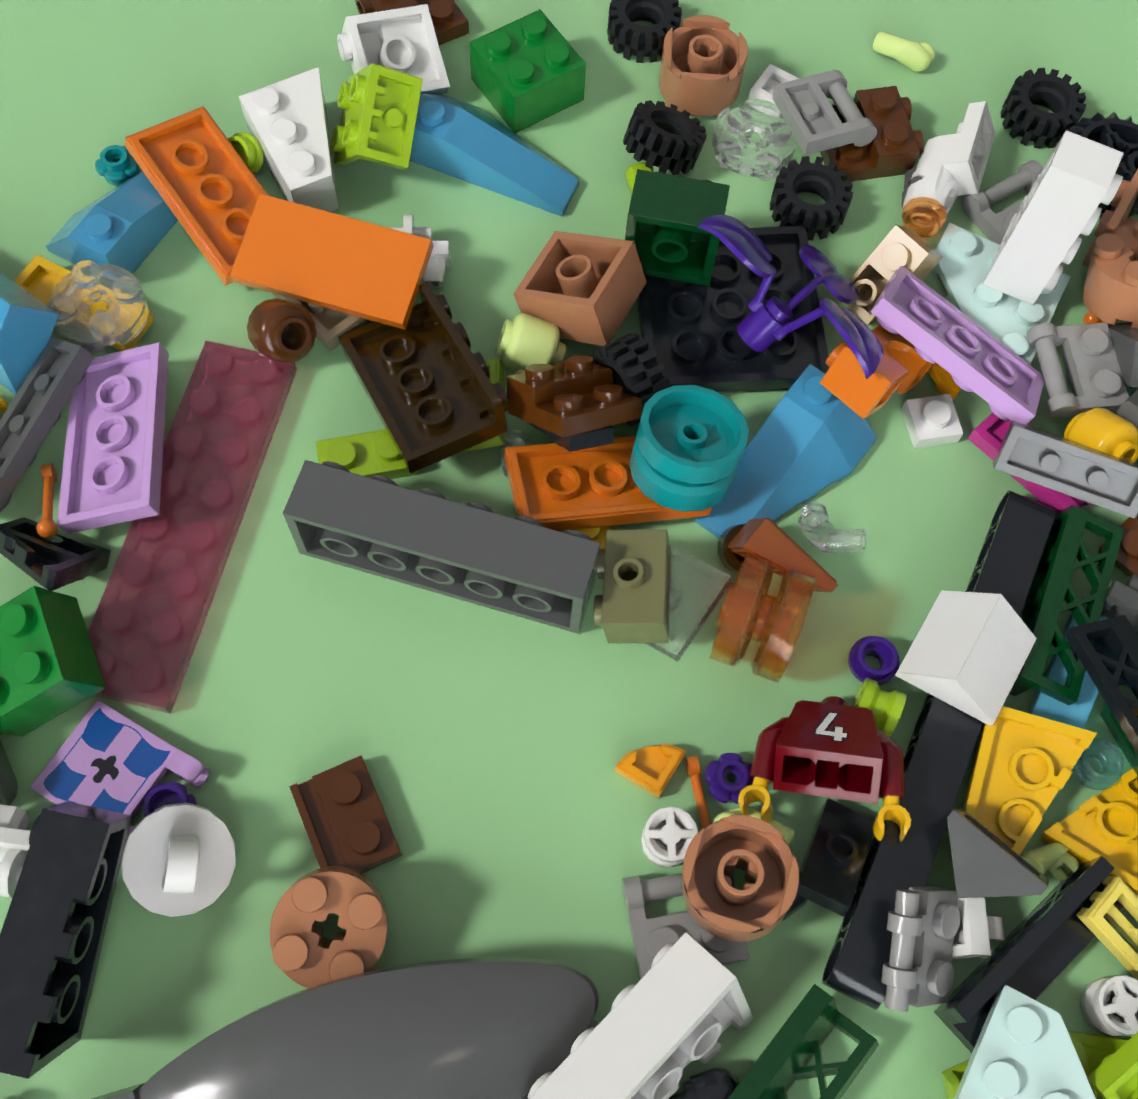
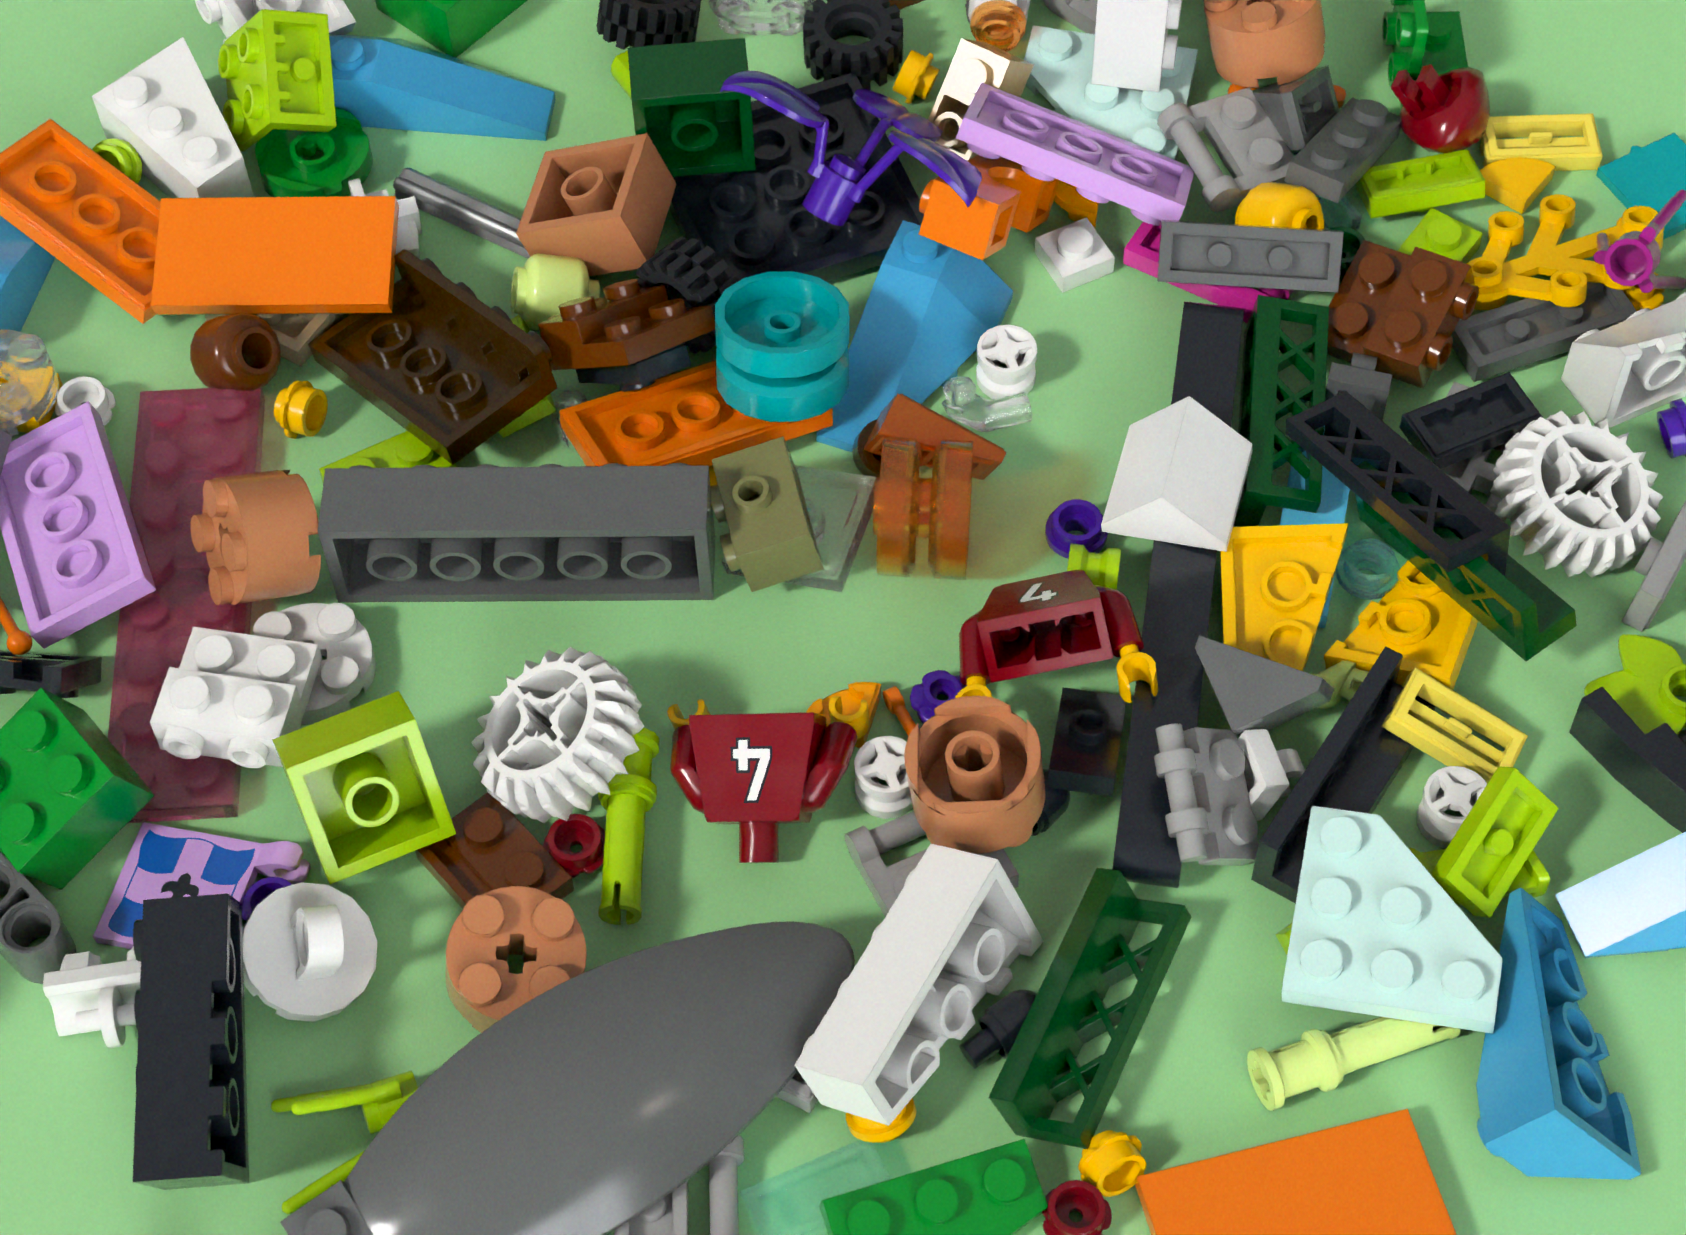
camera: 10 degrees left, 10 degrees down
(165, 329) = (85, 389): none -> white plate
(189, 624) = (234, 696): none -> white plate
(195, 1016) = (379, 1104): none -> lime plant
(244, 495) = (257, 536): none -> nougat brick
(247, 576) = (343, 642): none -> white plate
(257, 736) = (364, 786): none -> lime brick
(317, 388) = (301, 409): none -> yellow plate
(389, 205) = (290, 175): none -> green plate
(415, 809) = (576, 831): none -> dark red plate
(437, 736) = (557, 735): none -> white gear
(462, 794) = (625, 832): none -> lime pin
(481, 254) = (460, 209): none -> dark grey axle
(571, 807) = (762, 768): none -> dark red torso
(850, 241) = (916, 76): none -> yellow plate
(862, 489) = (1011, 347): none -> white wheel

